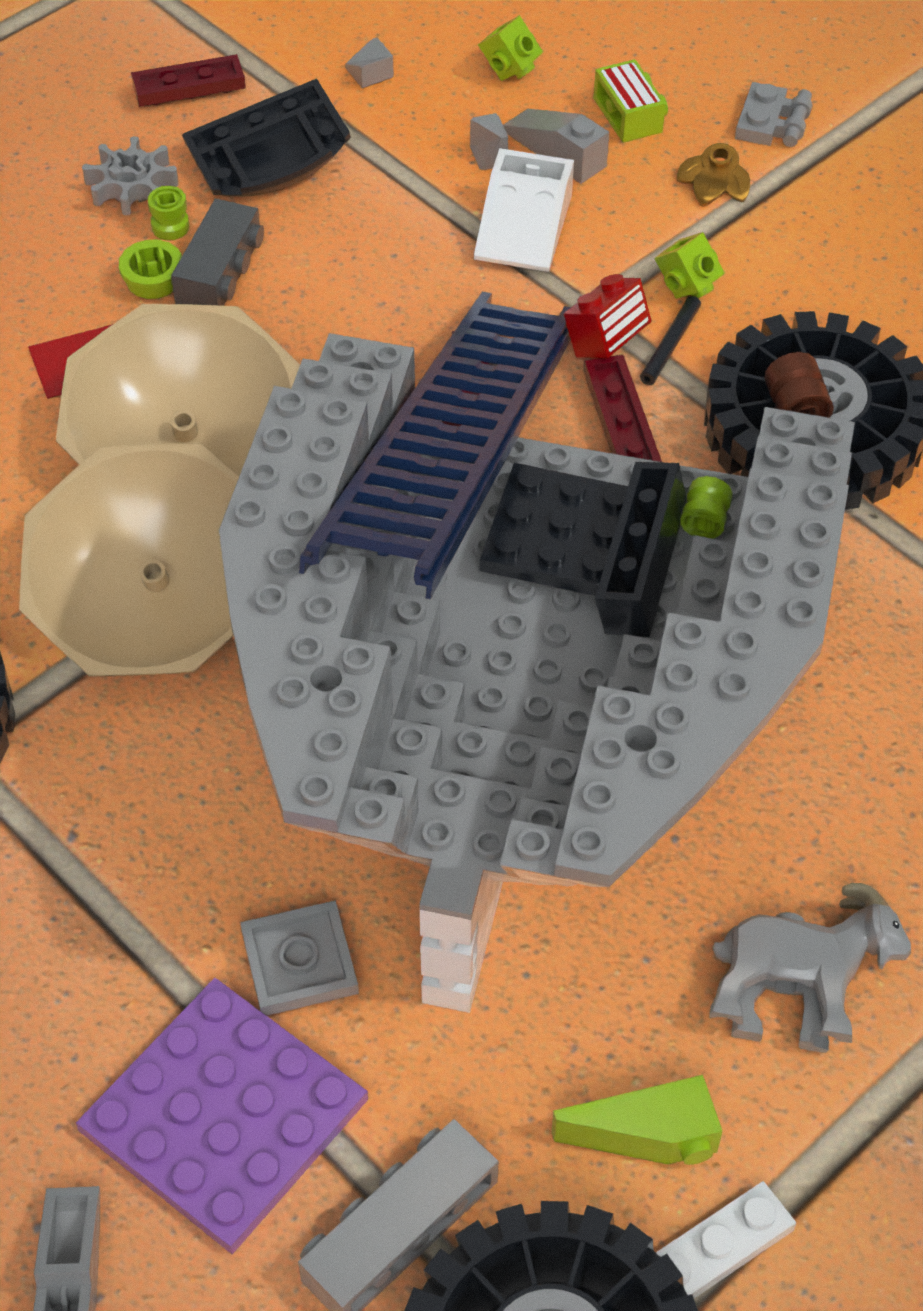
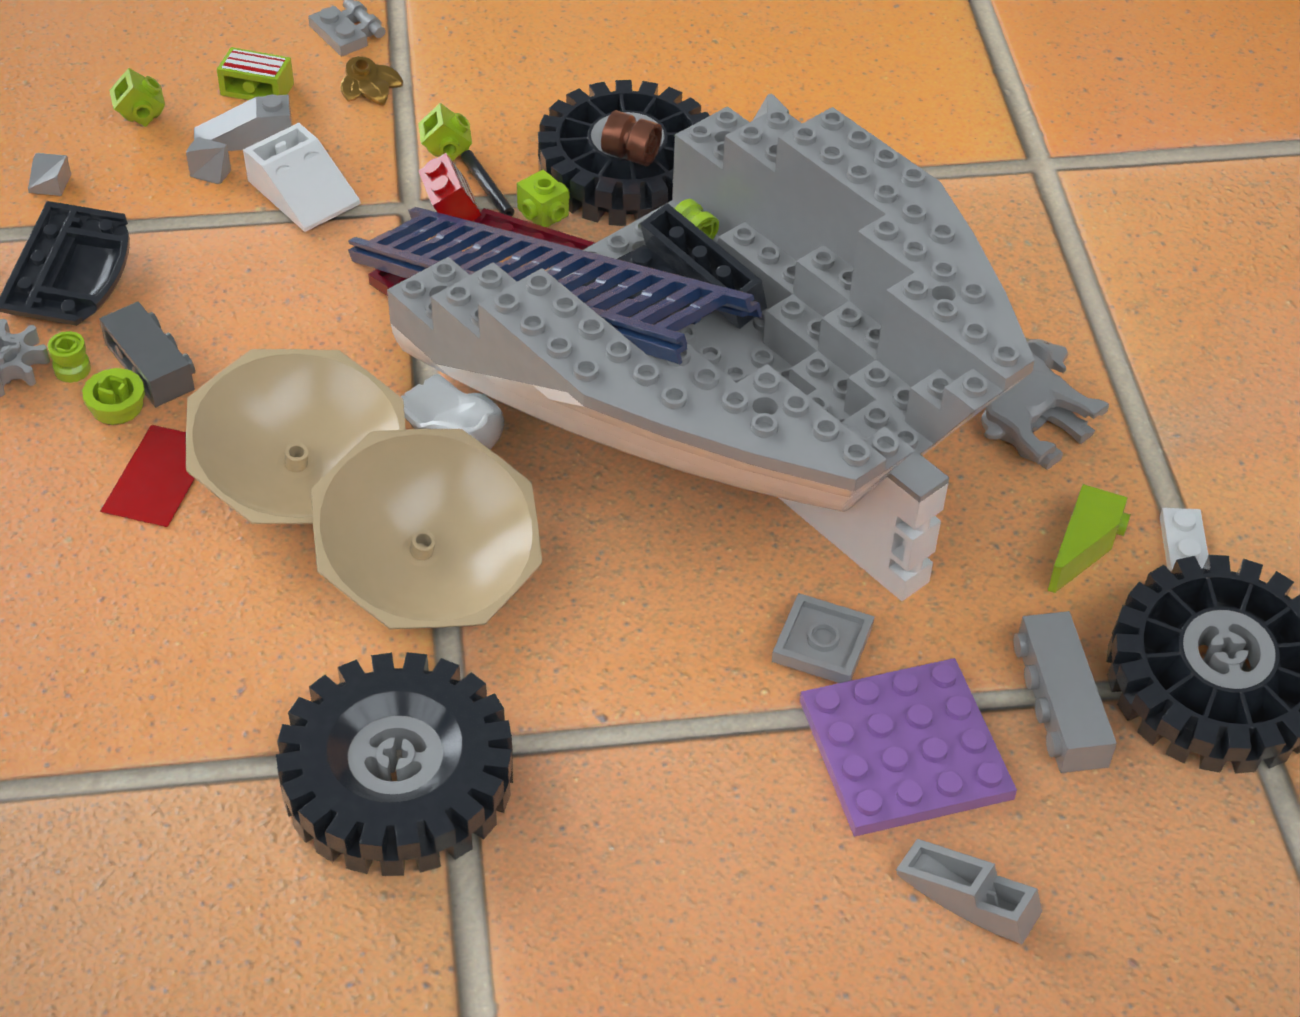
camera: 55 degrees left, 5 degrees down
(677, 388) = (542, 199): none -> lime brick

